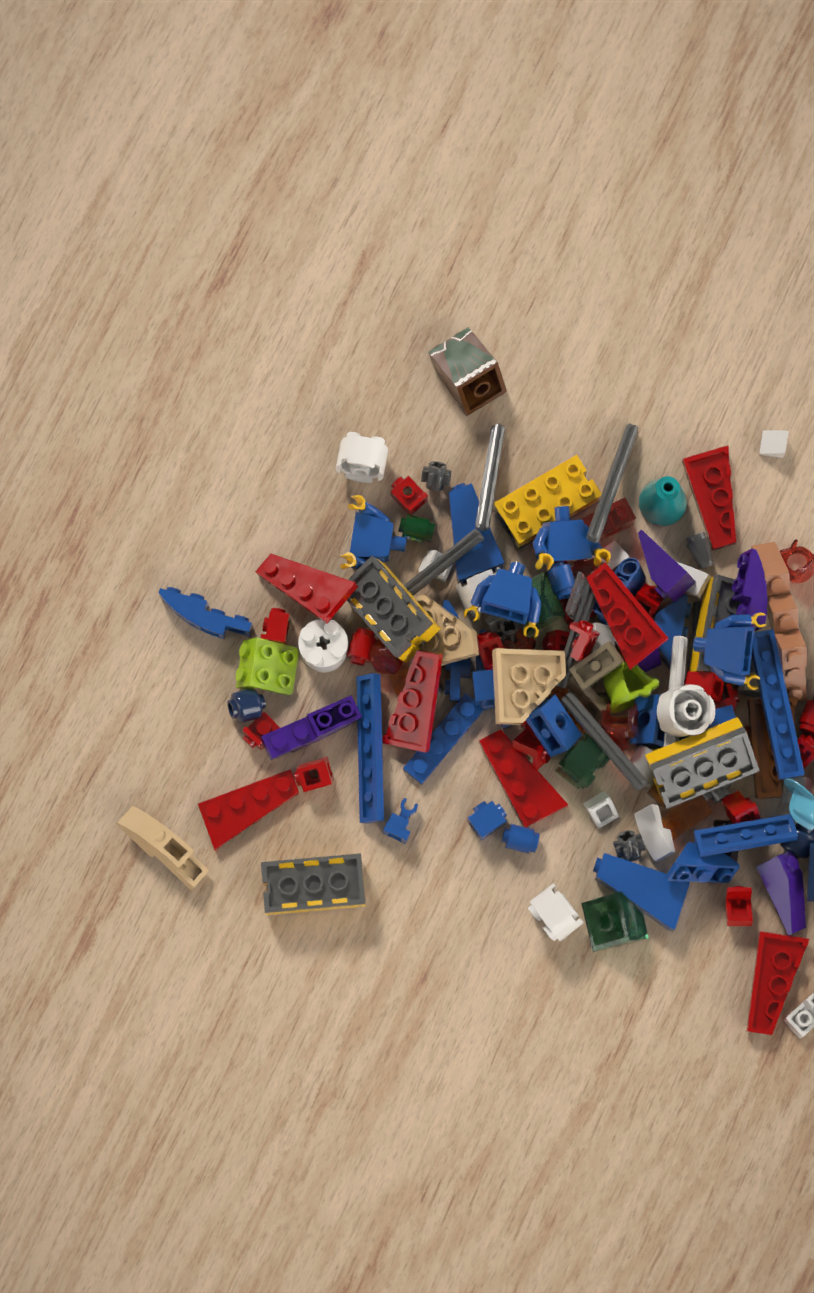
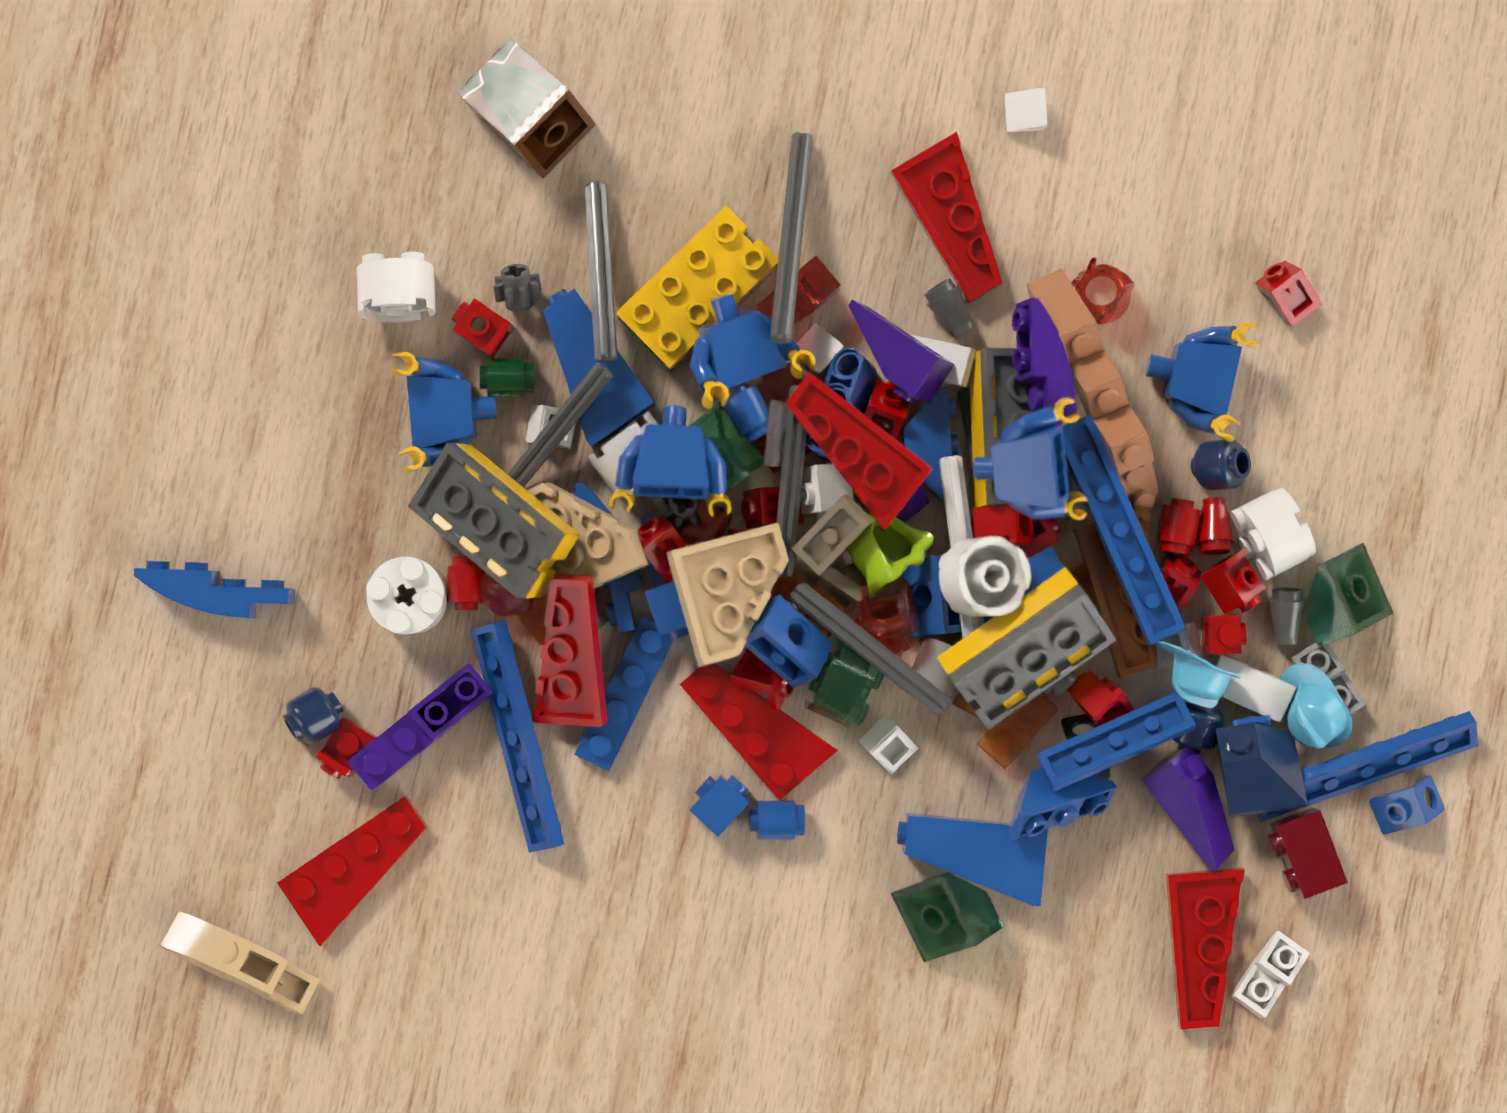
camera: 15 degrees left, 10 degrees up
(267, 666) = (330, 647): lime bracket -> none
(276, 626) = (329, 583): red brick -> none
(309, 587) = (364, 512): red wing -> none
(313, 884) = (481, 967): dark grey piece -> none
(324, 777) = (438, 809): red brick -> none
(397, 824) = (587, 844): blue piece -> none
(555, 912) = (855, 924): white brick -> none
(583, 644) = (806, 499): red bracket -> none
(629, 845) = (943, 792): dark grey gear -> none
(655, 837) = (981, 773): white slope -> none
(663, 501) = (872, 257): teal cone -> none
(738, 906) = (1128, 845): red bracket -> none

